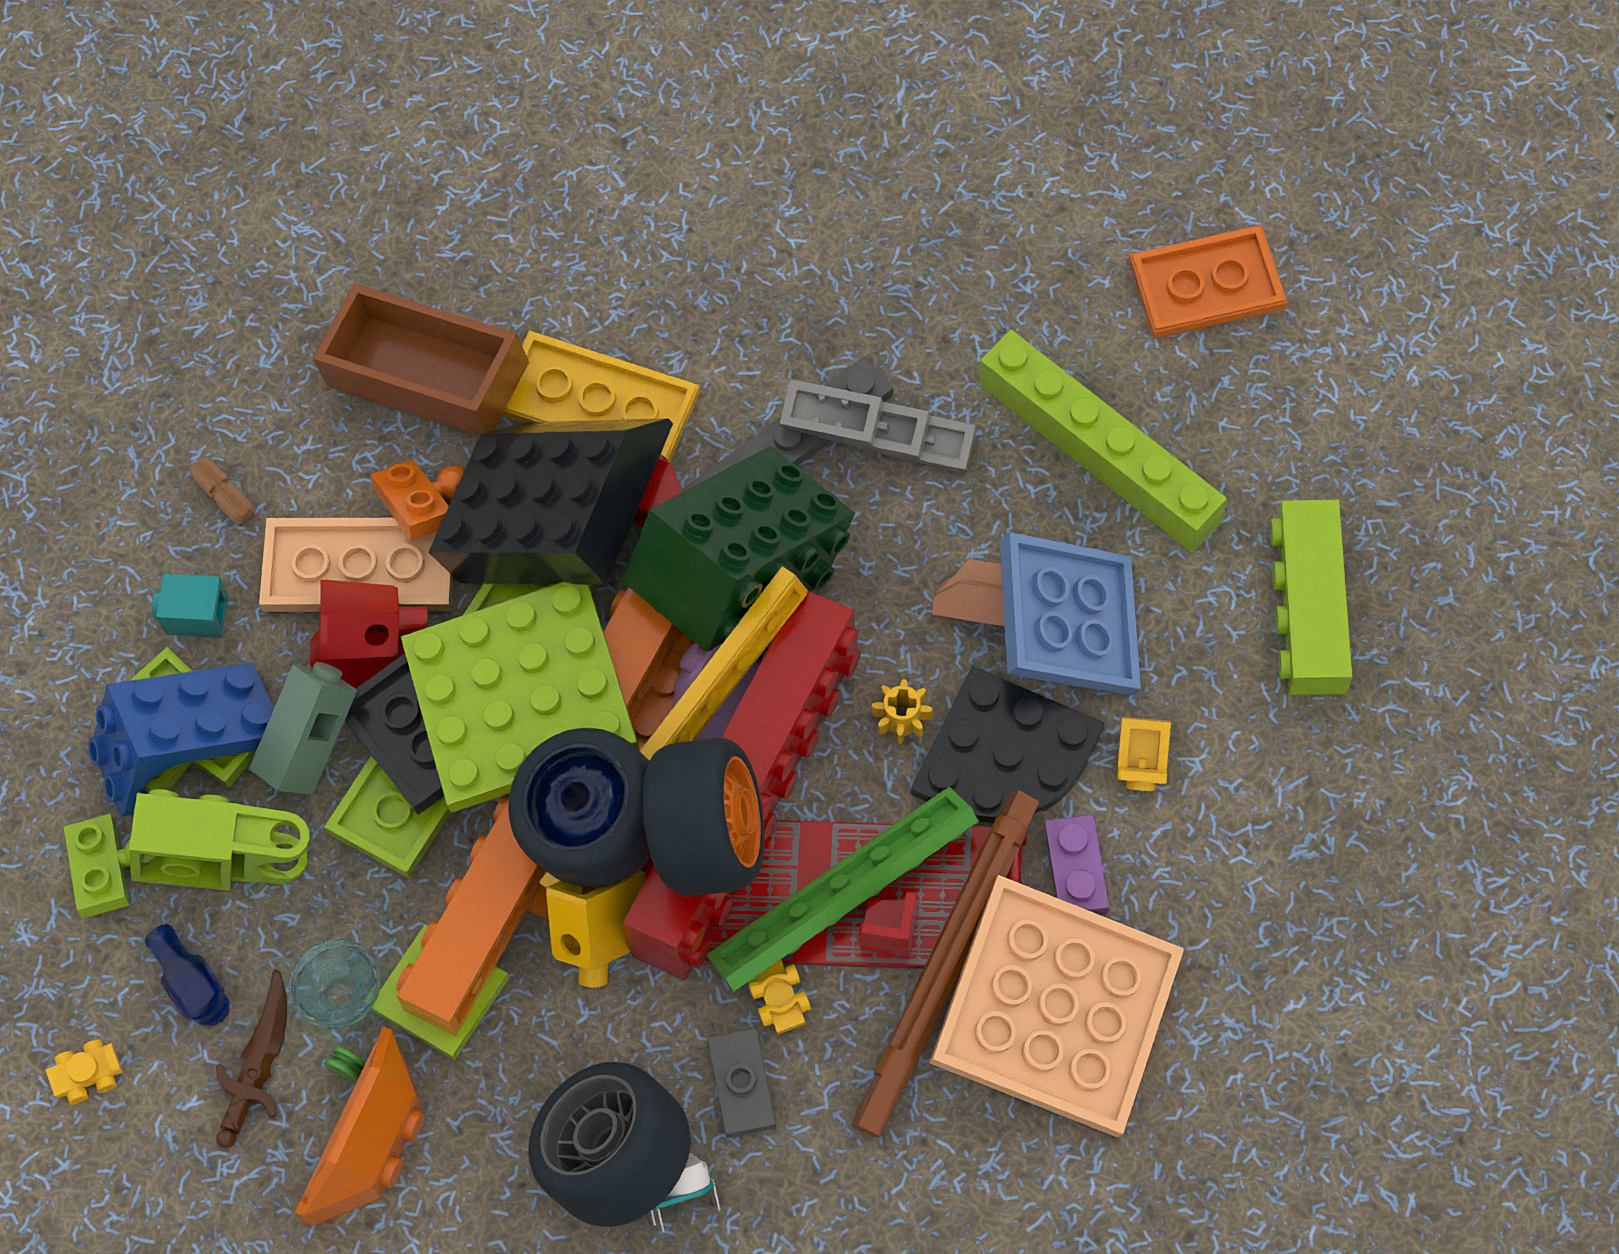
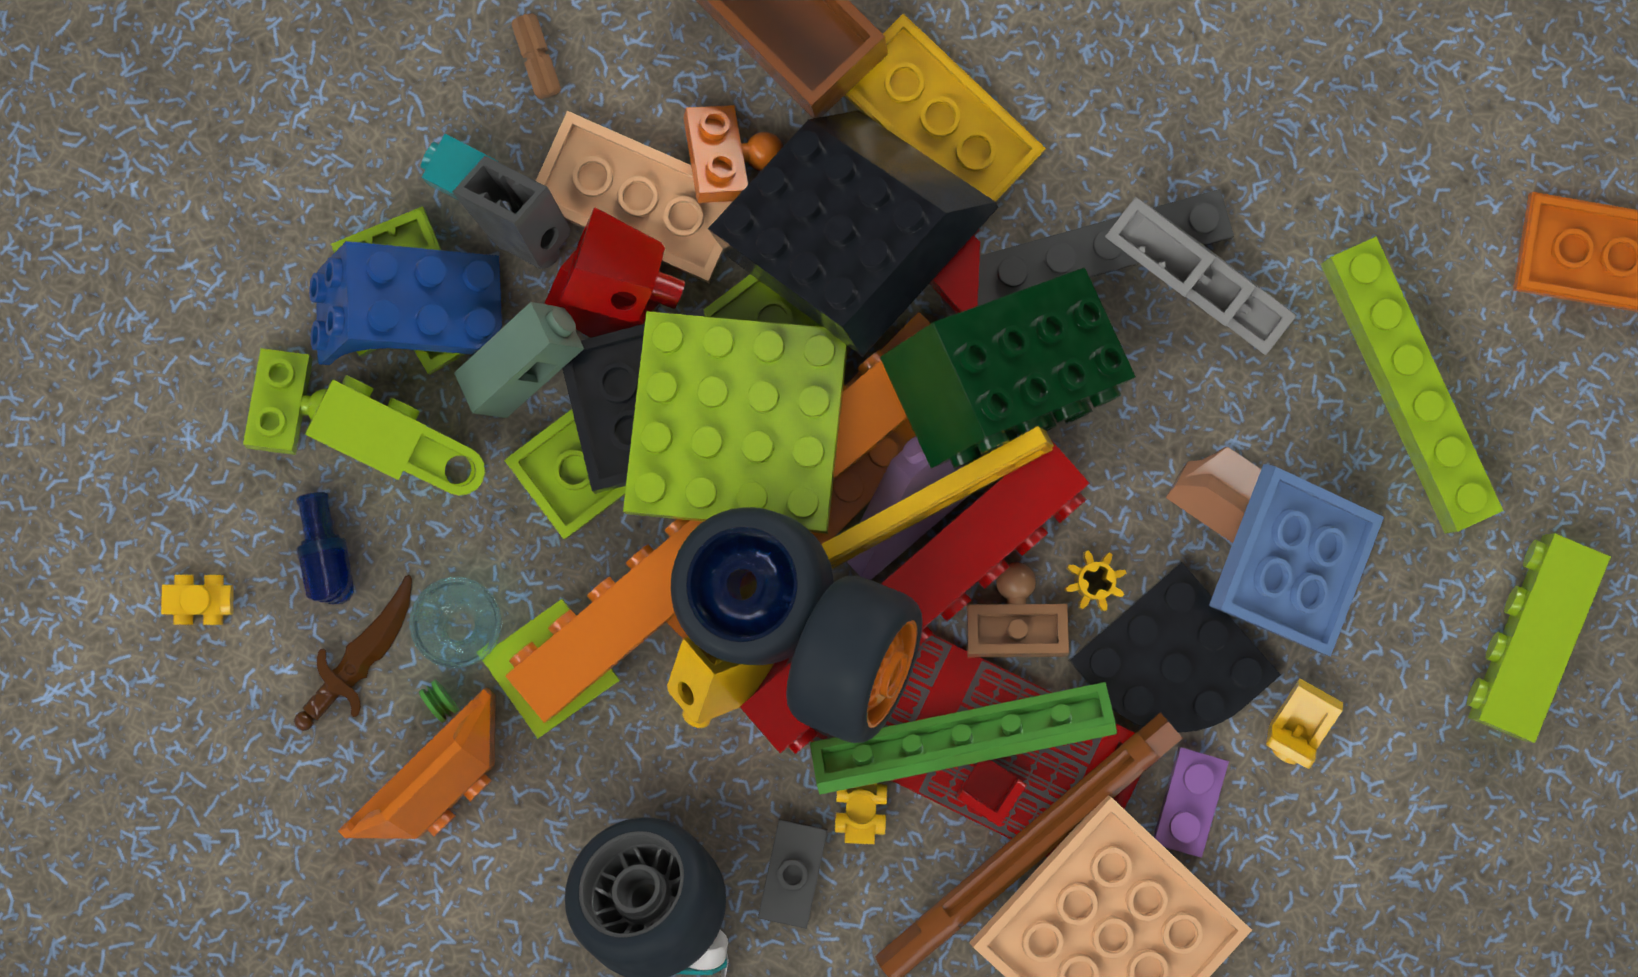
camera: 15 degrees right, 20 degrees up
(252, 609) = (531, 227): none -> dark grey torso
(848, 779) = (1017, 627): none -> medium nougat plate

